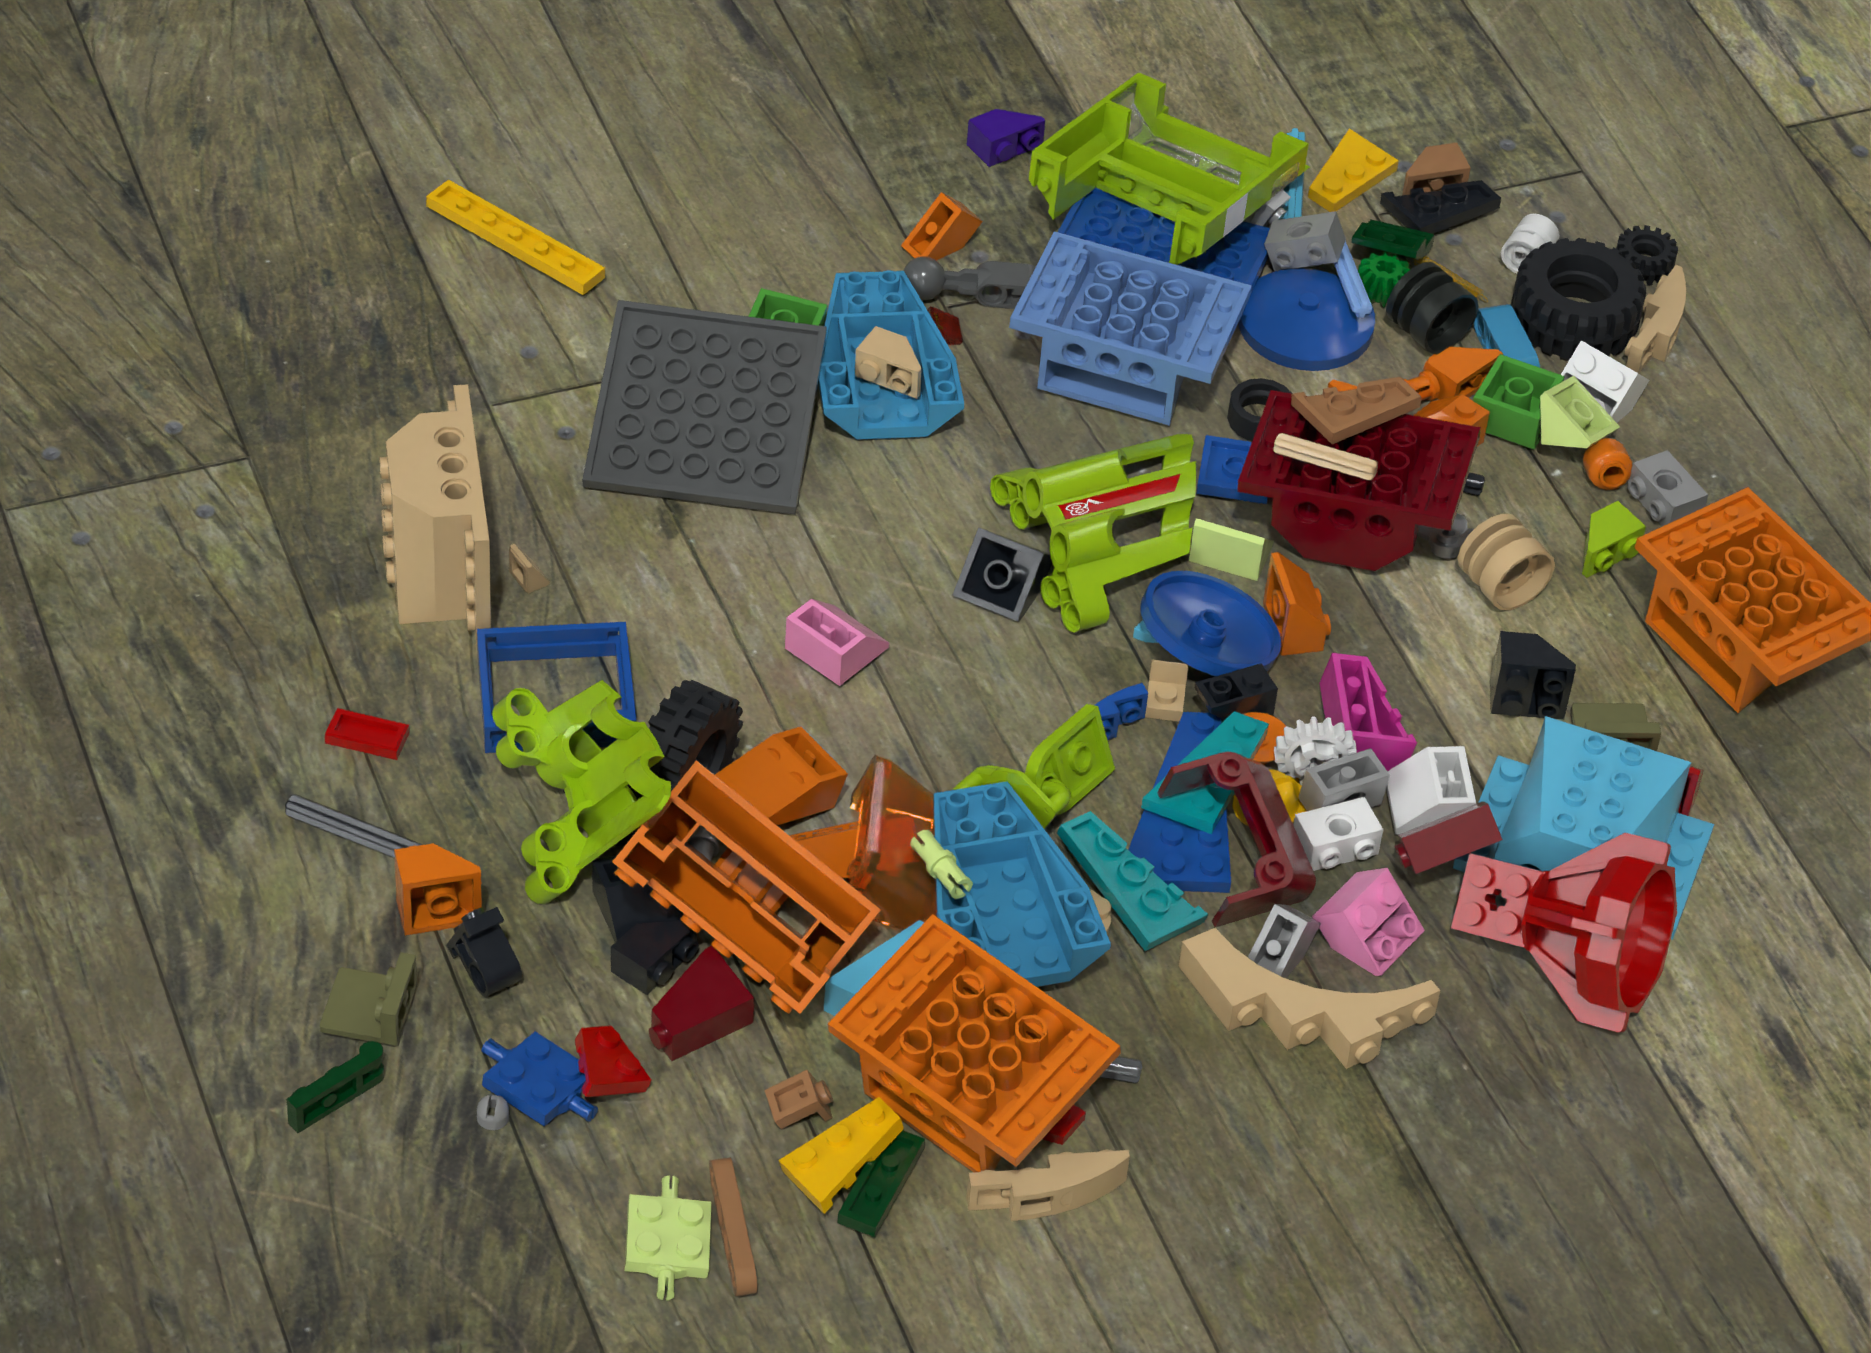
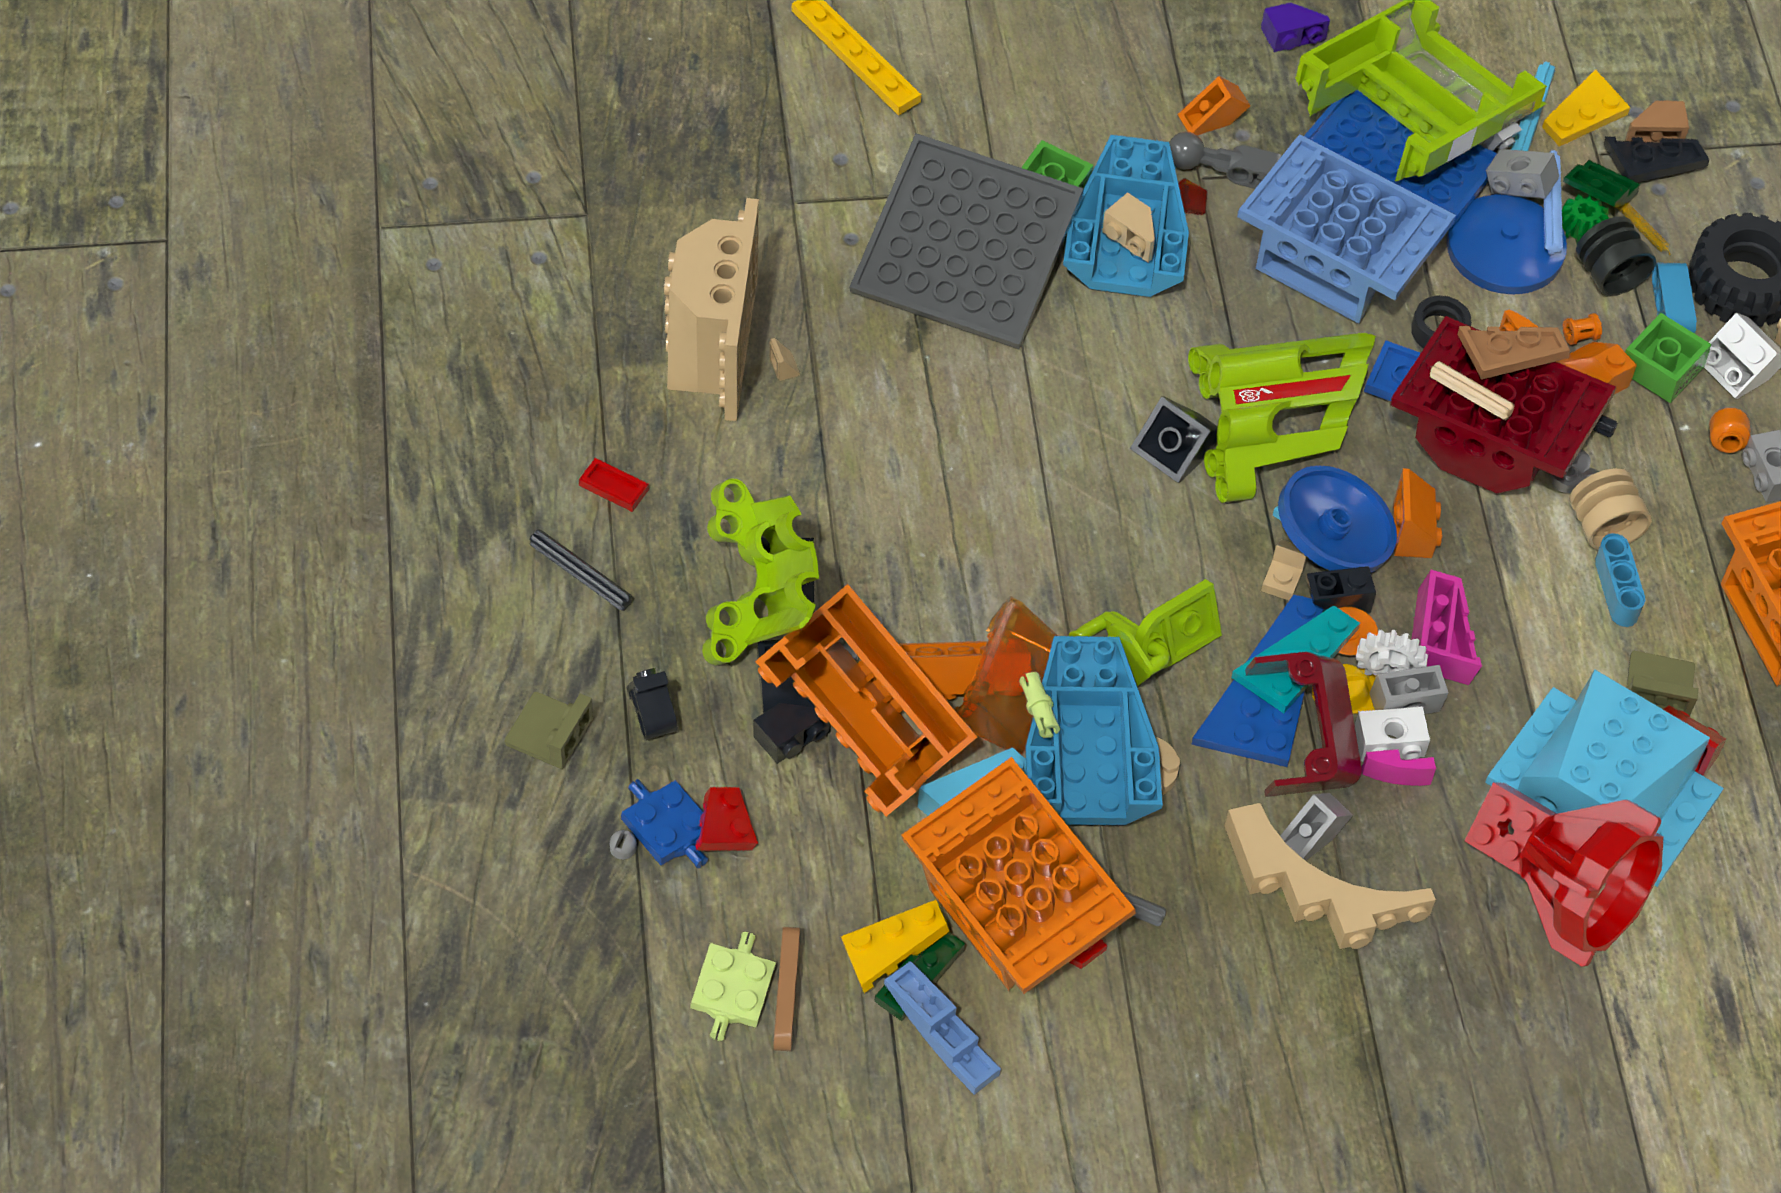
camera: 15 degrees right, 10 degrees up
(336, 1087) = (503, 798): dark green plate -> none
(434, 888) = (625, 639): orange slope -> none
(553, 643) = (789, 432): blue window -> none
(693, 727) = (860, 552): black tyre -> none
(700, 1007) = (814, 786): dark red slope -> none
(786, 777) = (931, 597): orange slope -> none
(799, 1098) = (872, 885): medium nougat bracket -> none
(831, 640) = (1015, 473): bright pink slope -> none
(931, 1237) = (940, 1027): none -> medium blue slope
(1063, 1185) = (1070, 1009): tan slope -> none
(1123, 707) = (1238, 581): blue slope -> none
(1138, 896) = (1205, 756): teal wing -> none
(1229, 549) = (1377, 448): yellowish green slope -> none
(1339, 865) = (1389, 768): none -> dark pink slope
(1369, 921) = (1396, 820): bright pink slope -> none
(1429, 787) = (1483, 712): white slope -> none
(1448, 838) = (1481, 761): dark red brick -> none
(1461, 369) = (1625, 318): orange slope -> none
(1527, 236) = (1723, 201): white wheel -> none
(1527, 613) = (1616, 562): none -> dark azure beam
(1530, 677) = (1599, 622): black slope -> none
(1573, 416) = (1710, 383): yellowish green slope -> none
(1610, 538) = (1711, 501): lime slope -> none

